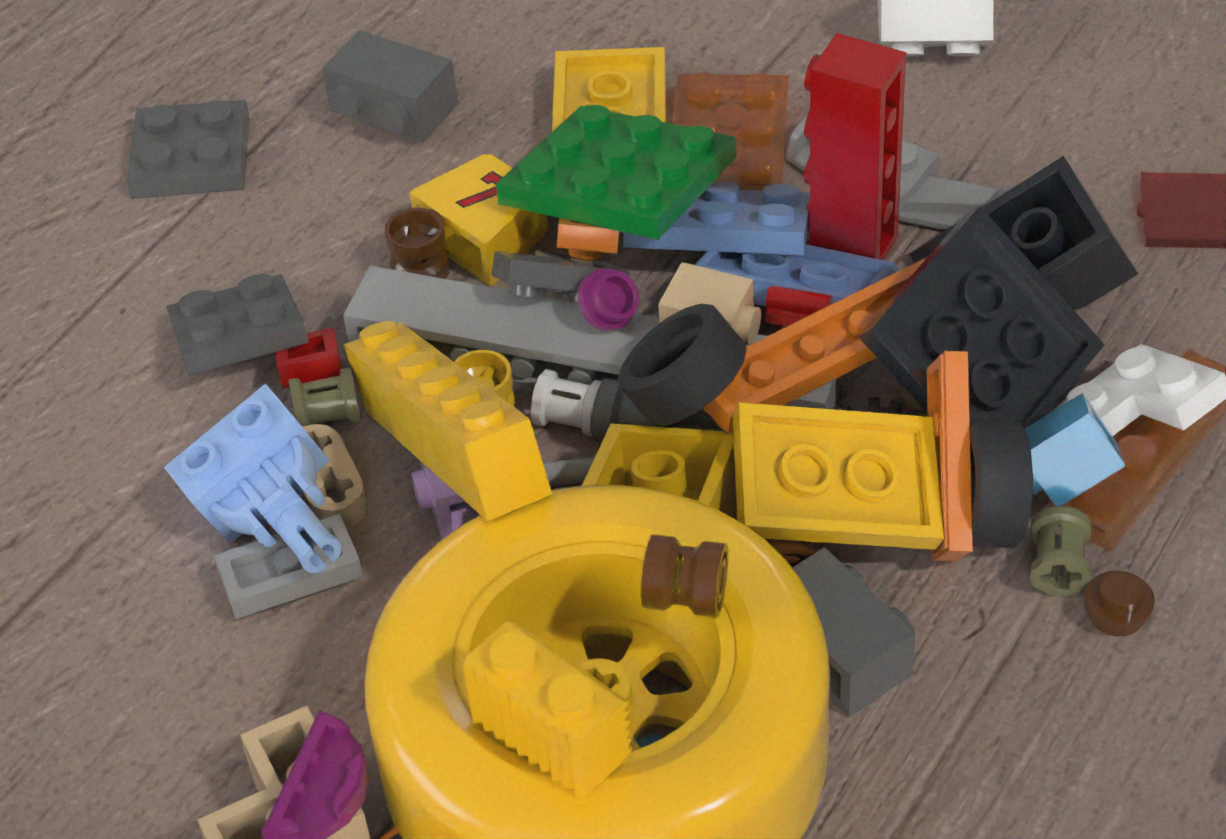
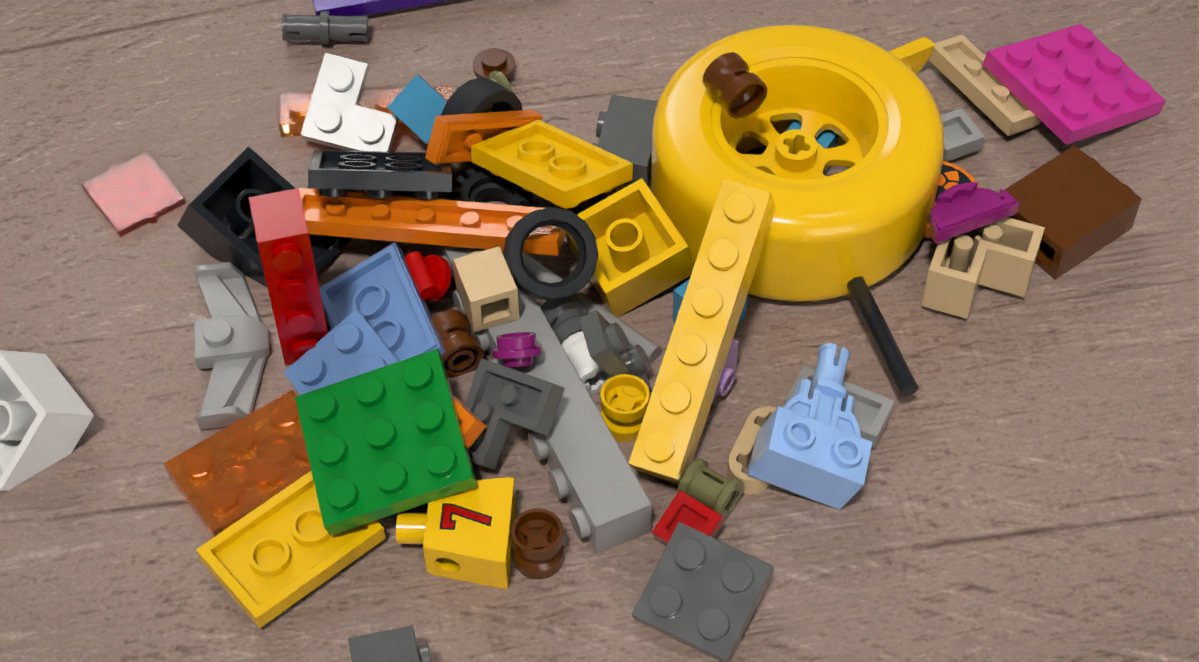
camera: 135 degrees left, 5 degrees up
(292, 642) = (882, 336): none -> black bar
(538, 382) = (611, 348): none -> dark grey plate
(547, 708) = (868, 78): yellow brick -> none

